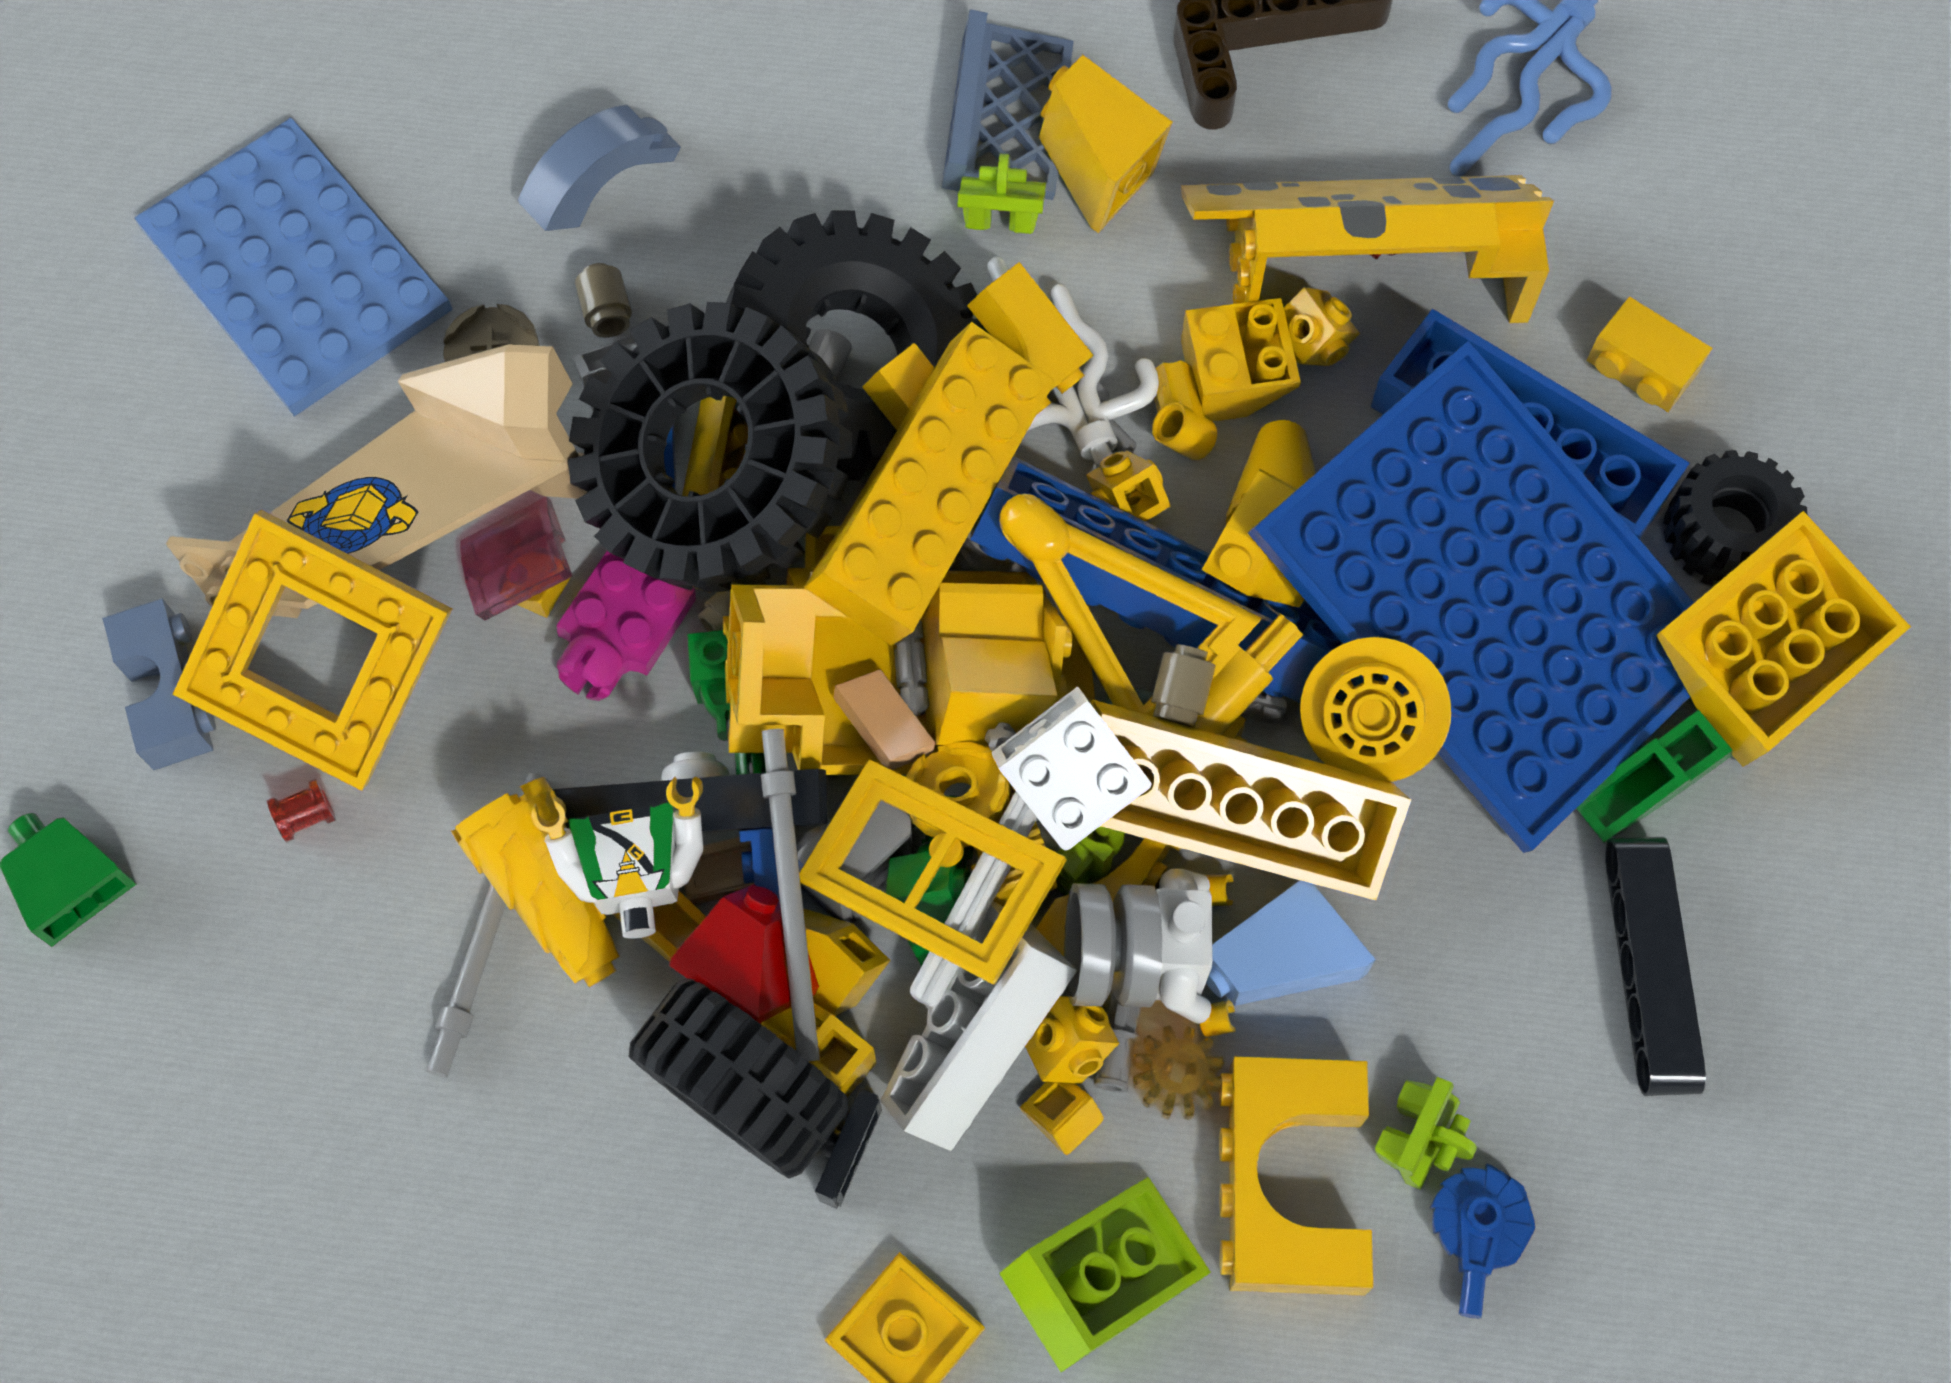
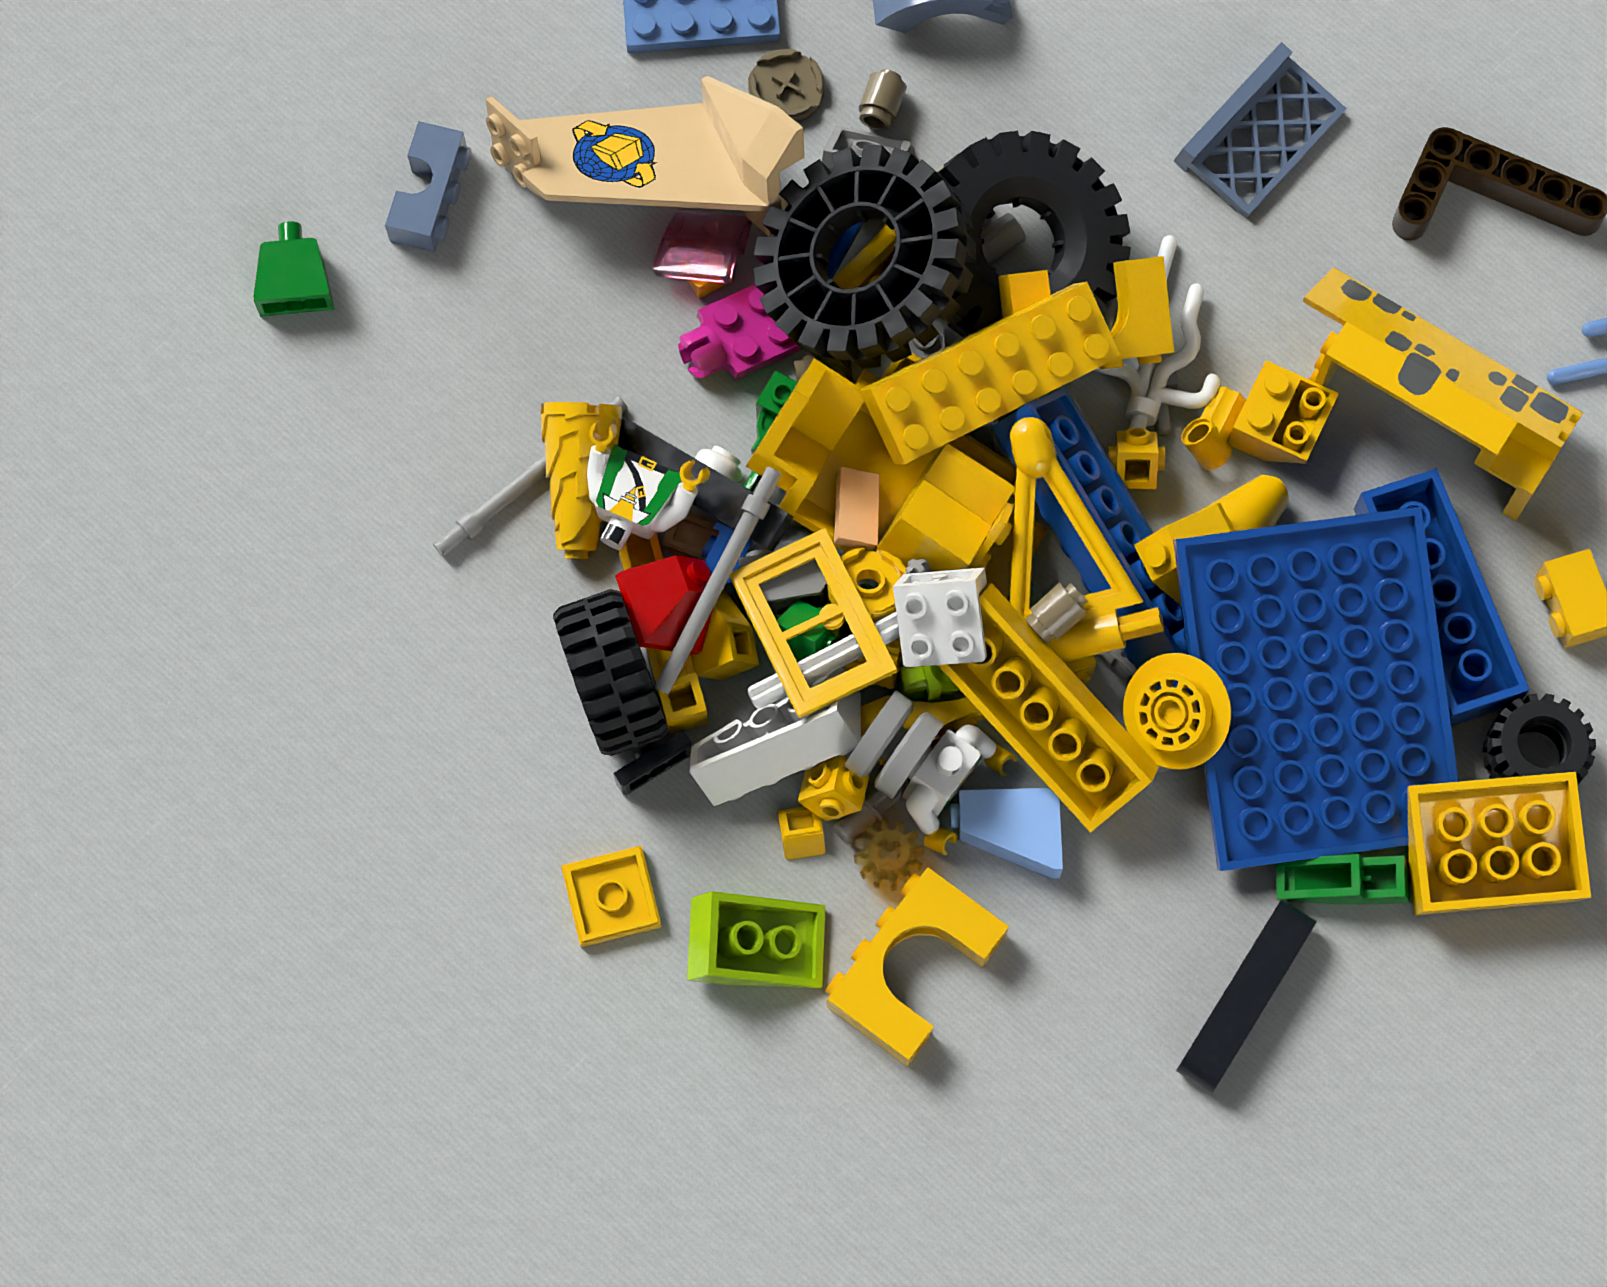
camera: 35 degrees right, 5 degrees up
(218, 674) = (463, 212): yellow plate -> none
(301, 810) = (462, 328): clear red bush -> none
(911, 671) = (901, 487): light grey axle -> none
(1001, 190) = (1206, 193): lime hips -> none
(1100, 138) = (1300, 199): yellow slope -> none
(1319, 327) = (1353, 430): yellow brick -> none
(1434, 1111) = (1019, 1000): lime hips -> none
(1485, 1224) = (1010, 1074): blue piece -> none

